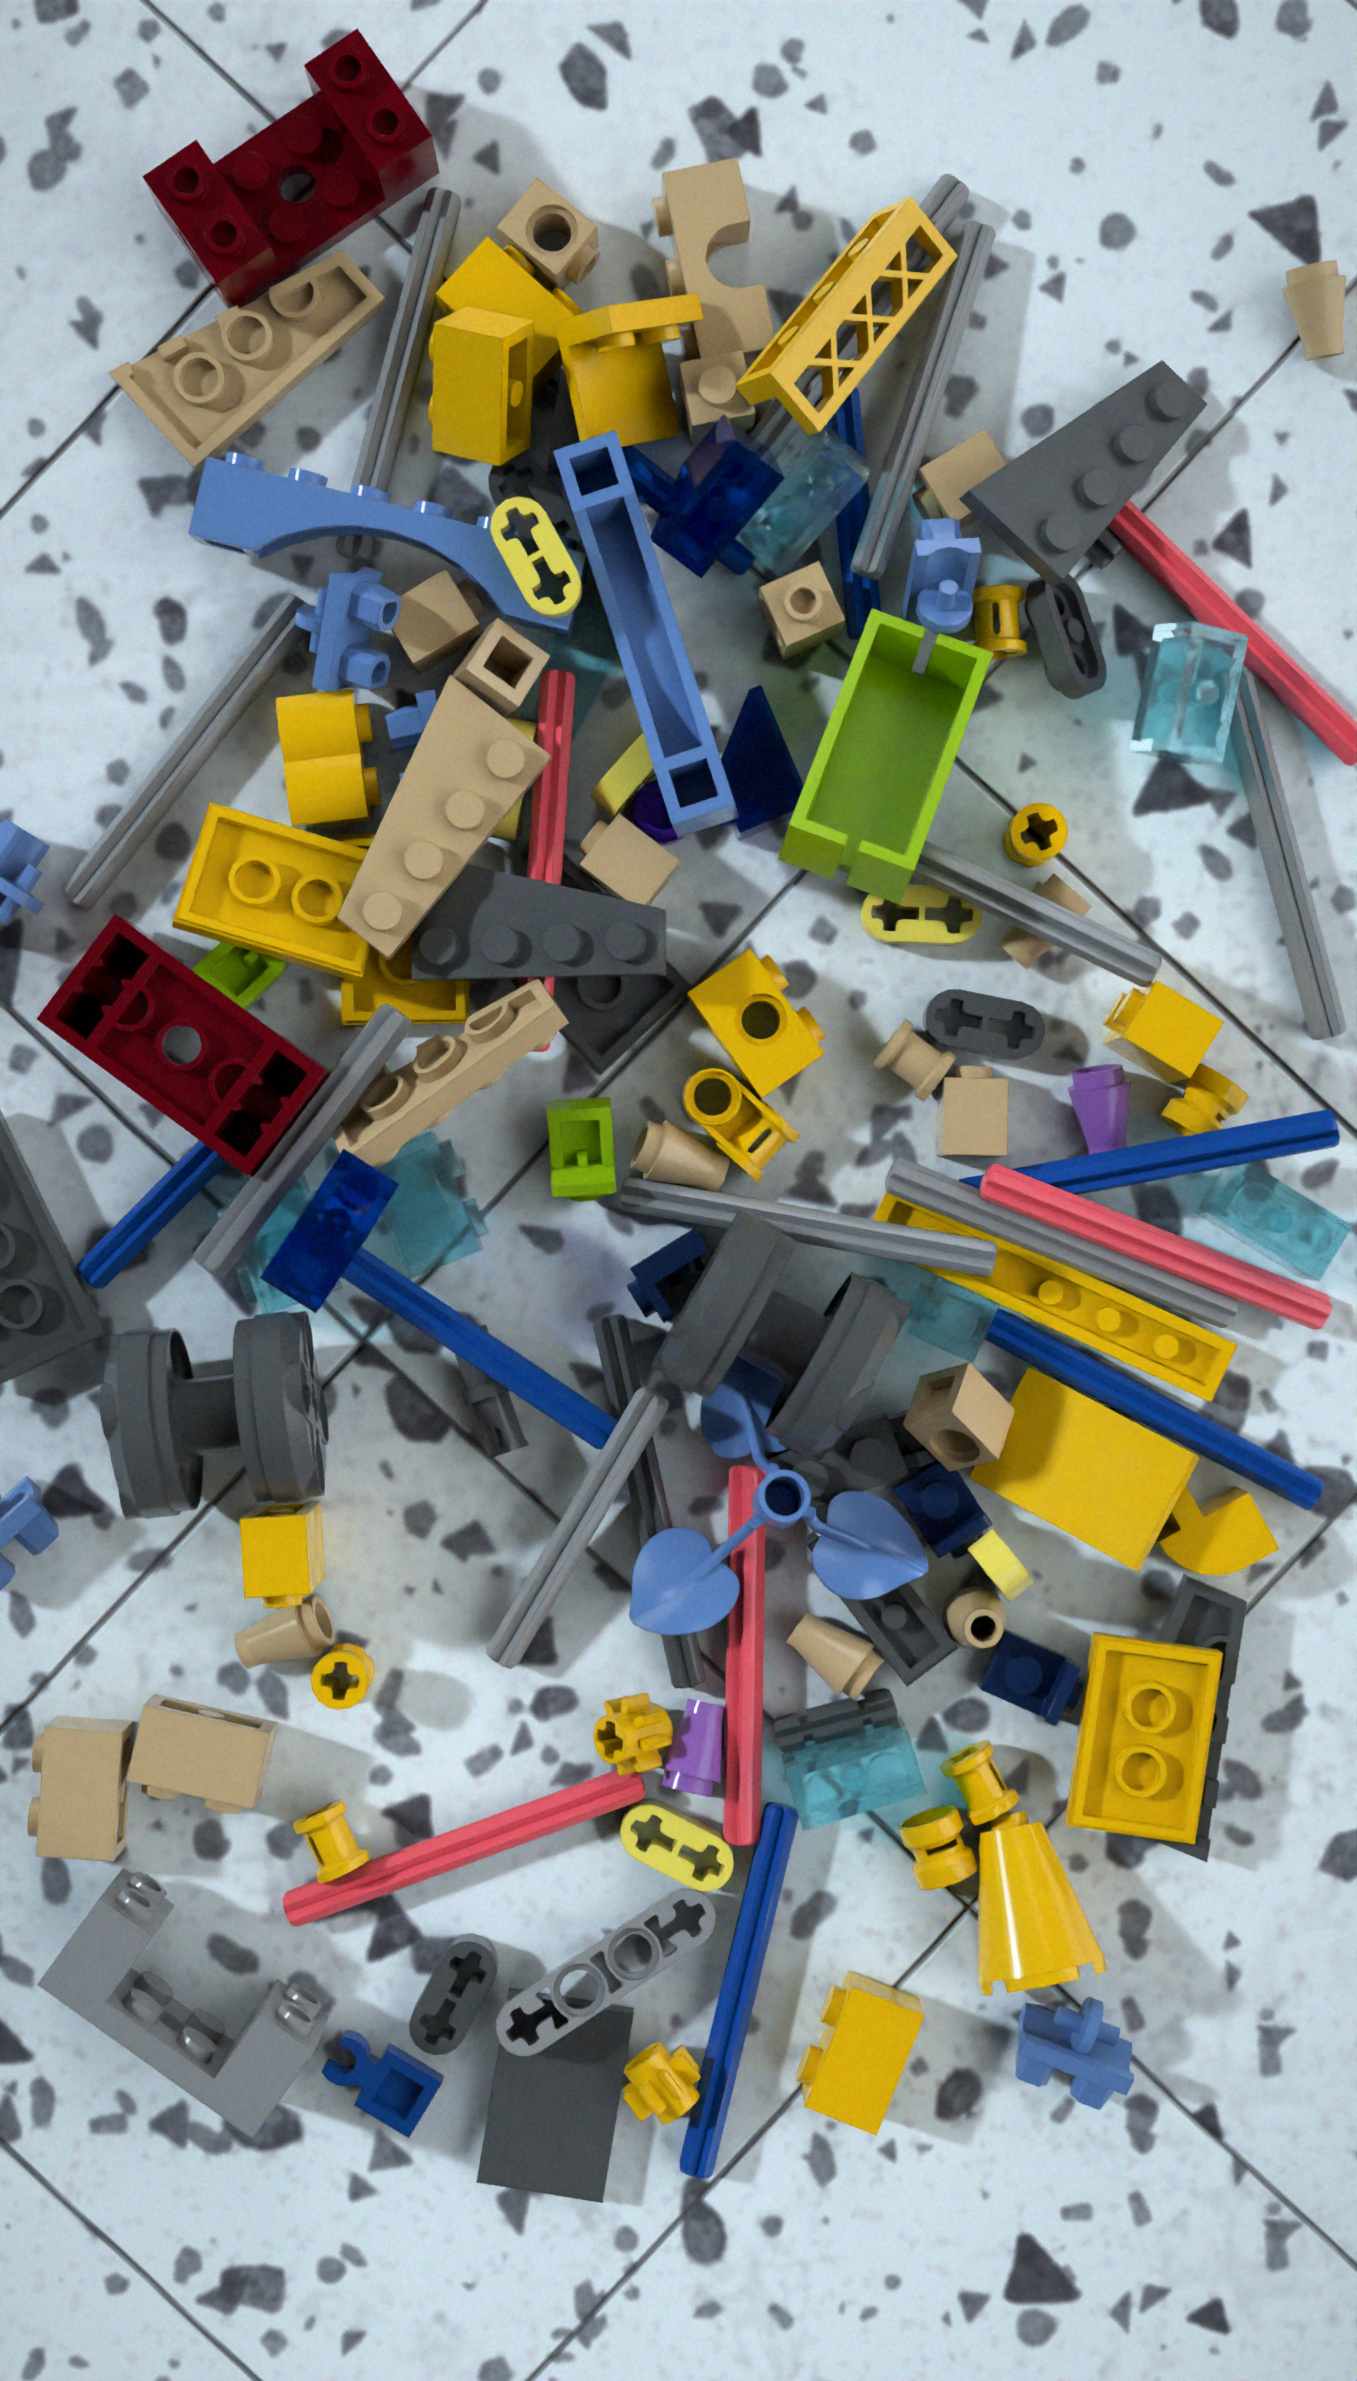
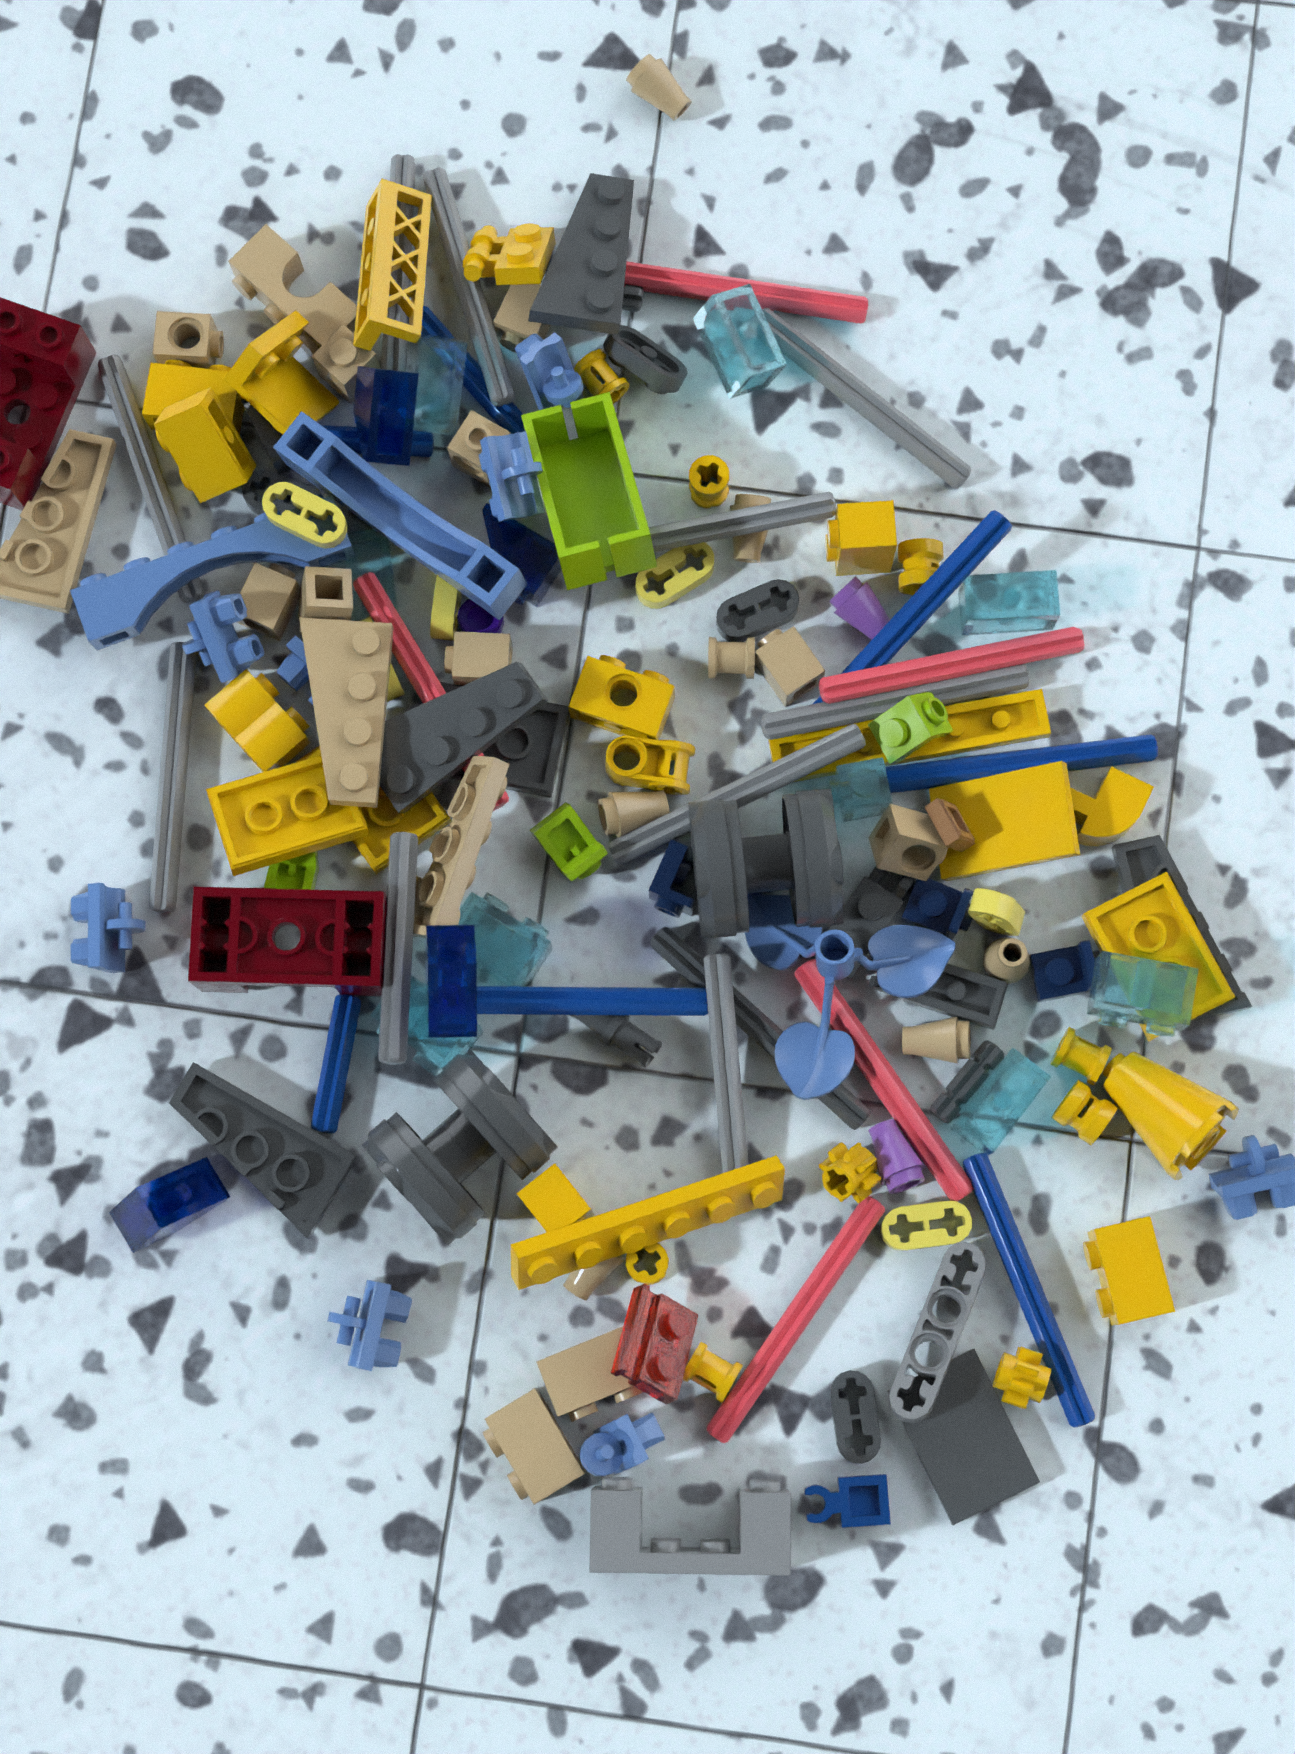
camera: 25 degrees left, 10 degrees down
(174, 1858) = (620, 1445): none -> medium blue hips
(286, 1775) = (655, 1344): none -> clear red plate
(349, 1641) = (646, 1222): none -> yellow plate
(807, 680) = (511, 476): none -> medium blue hips
(996, 405) = (511, 258): none -> yellow plate
(1019, 1432) = (950, 825): none -> medium nougat tile
(1057, 1289) = (910, 725): none -> lime bracket
(1093, 1775) = (1142, 993): none -> clear light blue brick

